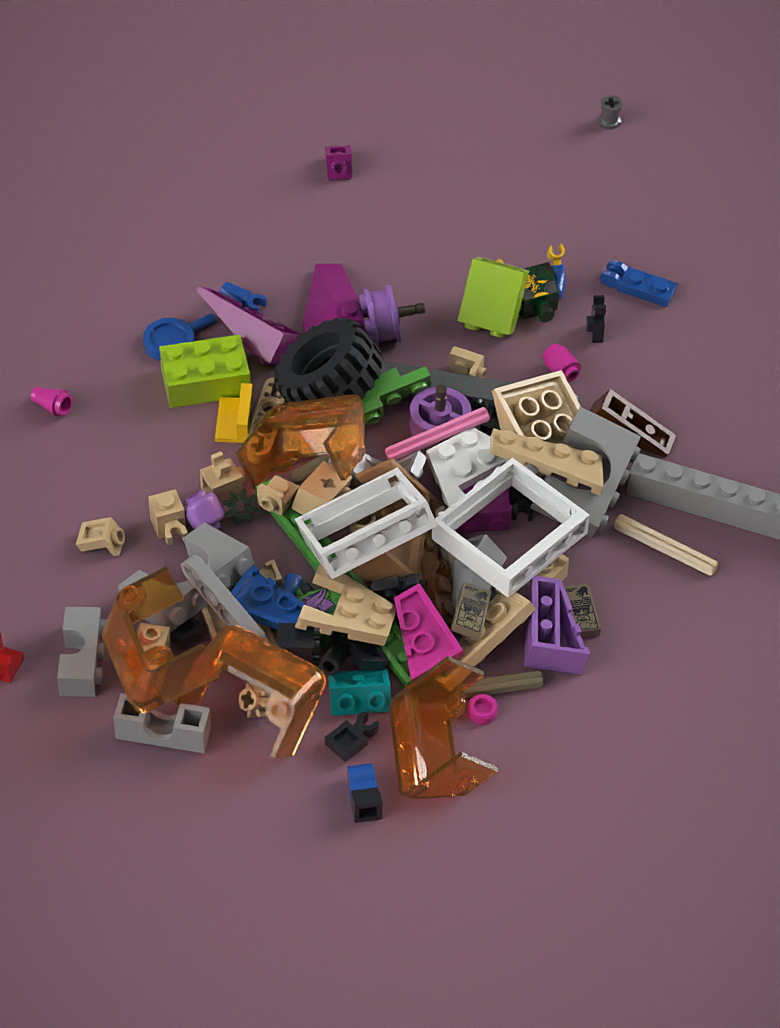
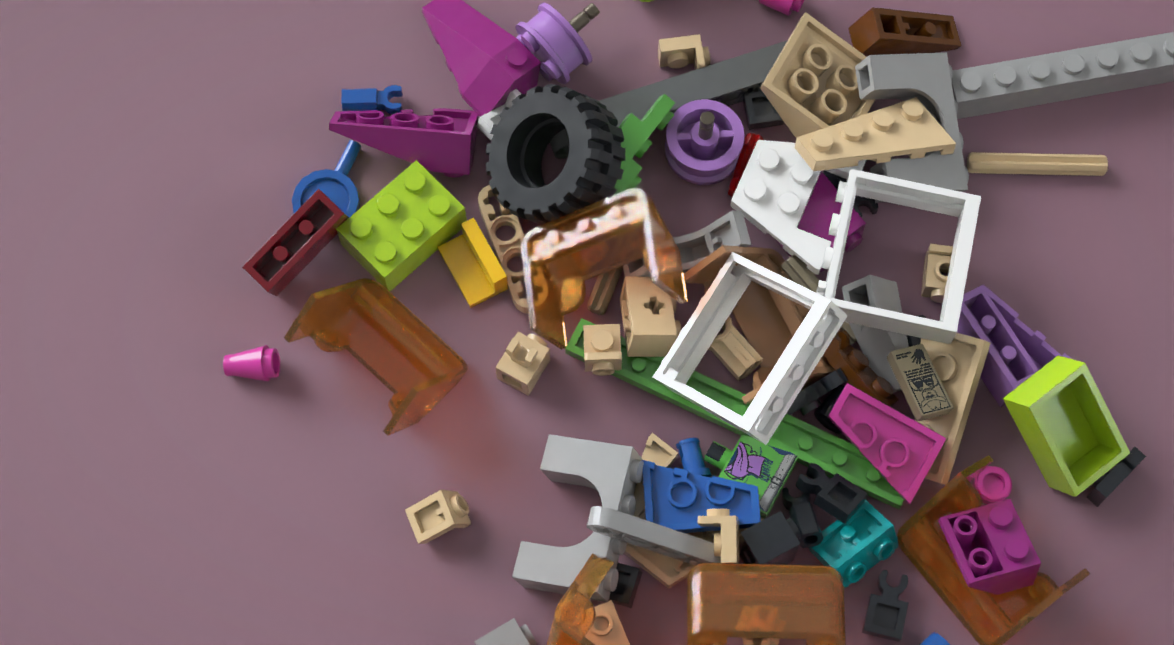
camera: 30 degrees left, 20 degrees up
(127, 343) = (296, 243): none -> dark red brick
(144, 421) = (387, 342): none -> clear orange windscreen
(167, 515) = (498, 446): tan brick -> none
(203, 508) = (533, 416): medium lavender head -> none
(249, 507) = (567, 384): gear -> none
(269, 615) = (727, 542): none -> tan bracket
(358, 612) = (810, 461): tan wing -> none
(437, 434) = (727, 171): bright pink axle -> none
(442, 725) = (992, 547): none -> magenta slope
(506, 683) = (987, 445): dark tan axle -> none
(552, 684) = (1066, 425): none -> lime piece
(568, 743) = (1110, 480): none -> black plate
(583, 609) = (1009, 291): dark tan tile -> none

